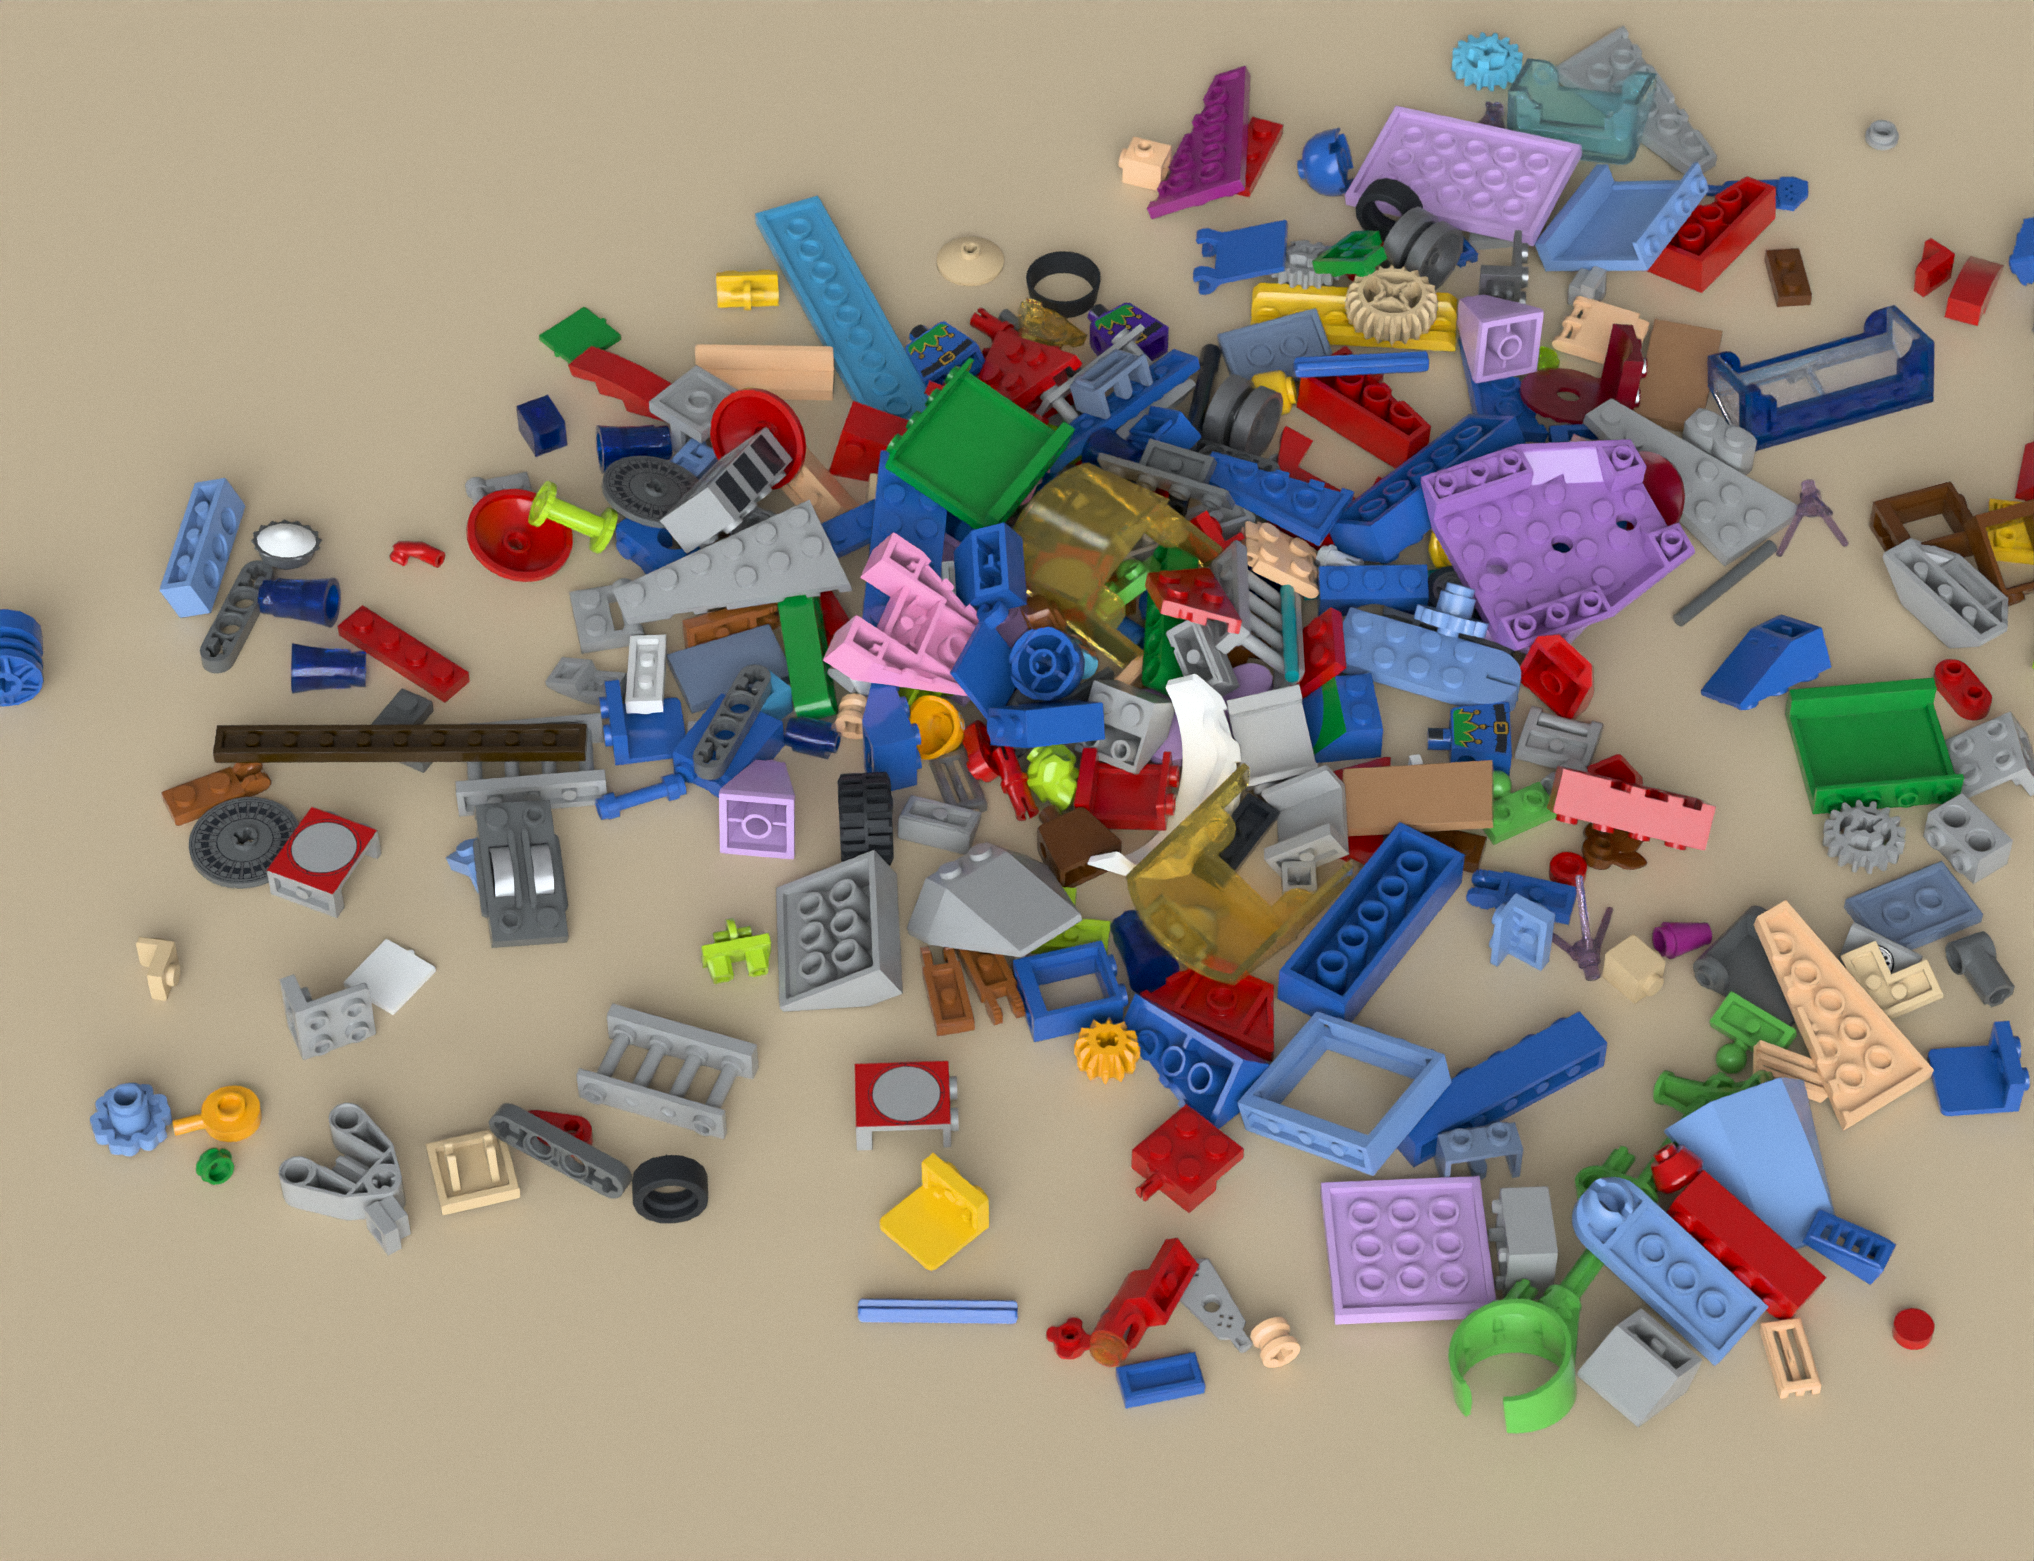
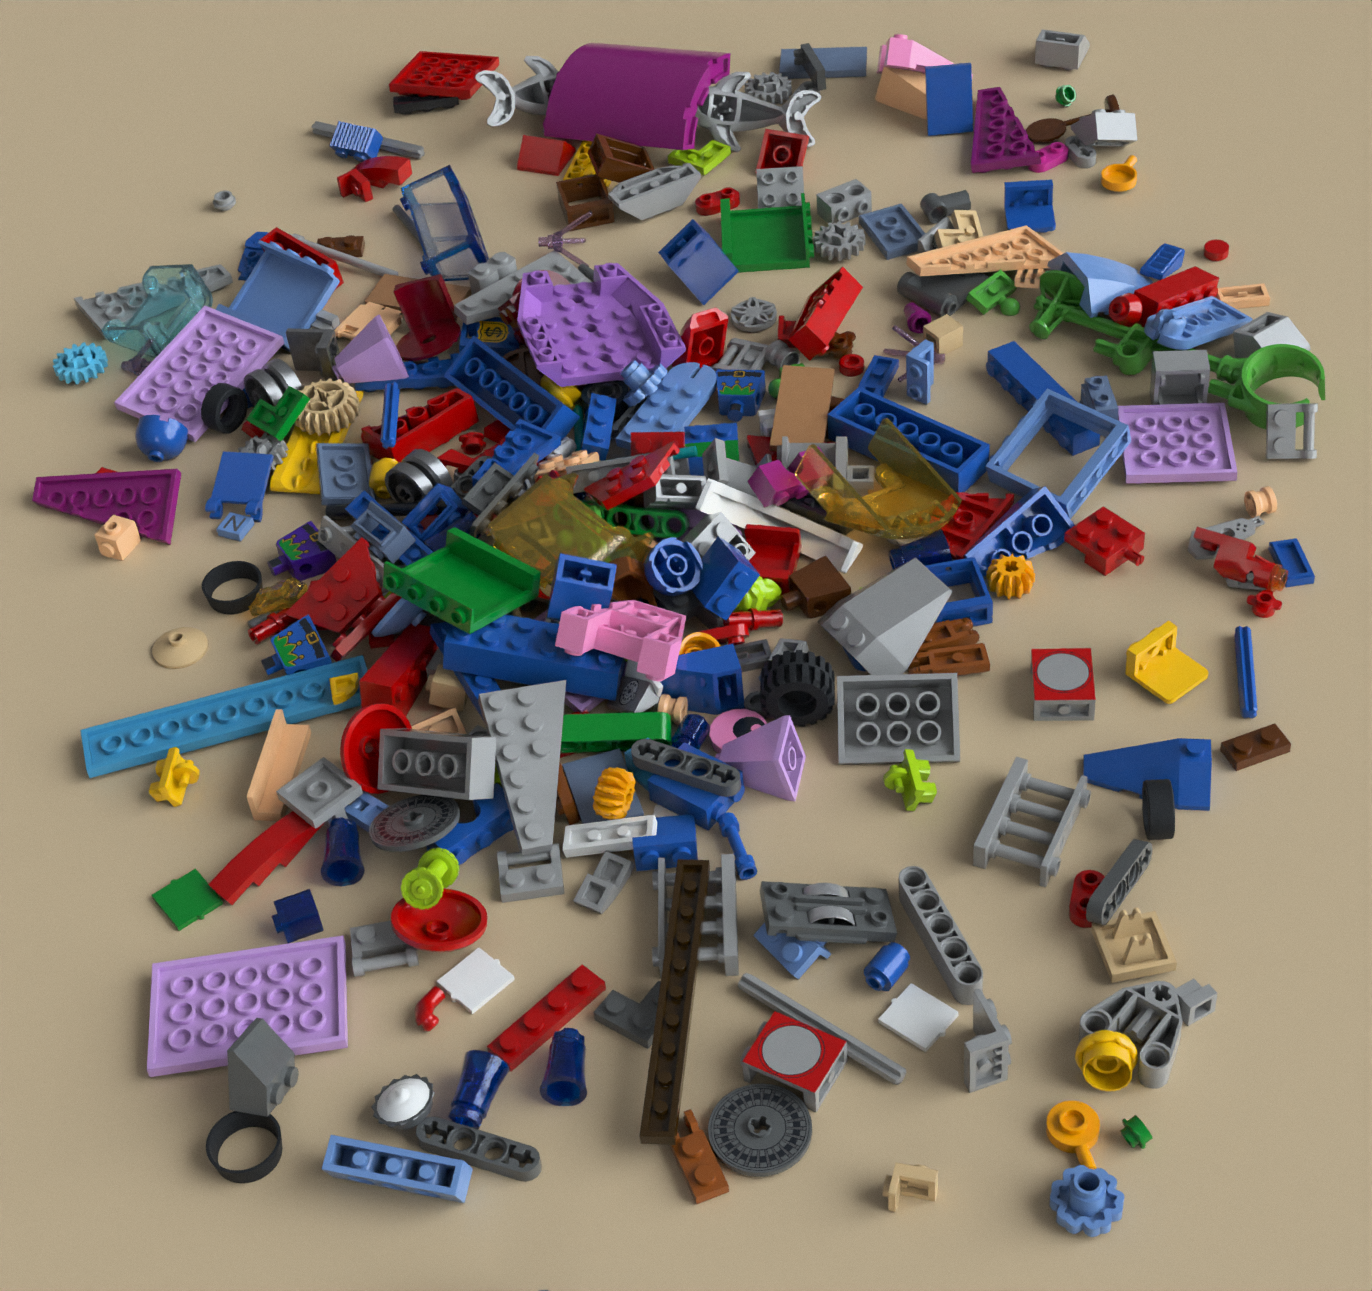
camera: 80 degrees left, 5 degrees down
(243, 412) = (232, 1123): none -> black tyre
(303, 1131) = (1106, 1059): none -> yellow piece
(319, 416) = (259, 1070): none -> dark grey slope
(373, 887) = (855, 1049): none -> light grey axle
(426, 408) = (211, 999): none -> lavender plate
(449, 937) = (887, 967): none -> blue brick
(458, 590) = (475, 980): none -> white piece
(494, 985) = (940, 934): none -> light grey beam
(692, 660) = (614, 793): none -> light orange gear
(749, 1210) = (1180, 760): none -> blue wedge
(801, 1315) = (1255, 747): none -> reddish brown plate
(817, 786) = (733, 725): none -> bright pink tile
(881, 400) = (343, 687): none -> yellow tile
(984, 662) = (646, 597): blue flag -> none
(1180, 269) = (235, 526): none -> medium blue tile
(1281, 814) = (776, 484): none -> magenta arch
(1351, 470) = (472, 443): none -> red plate
(1419, 1376) = (1282, 431): none -> light grey plate
(1675, 750) = (753, 315): none -> light grey wheel
(1774, 227) = (348, 259): none -> light grey bar

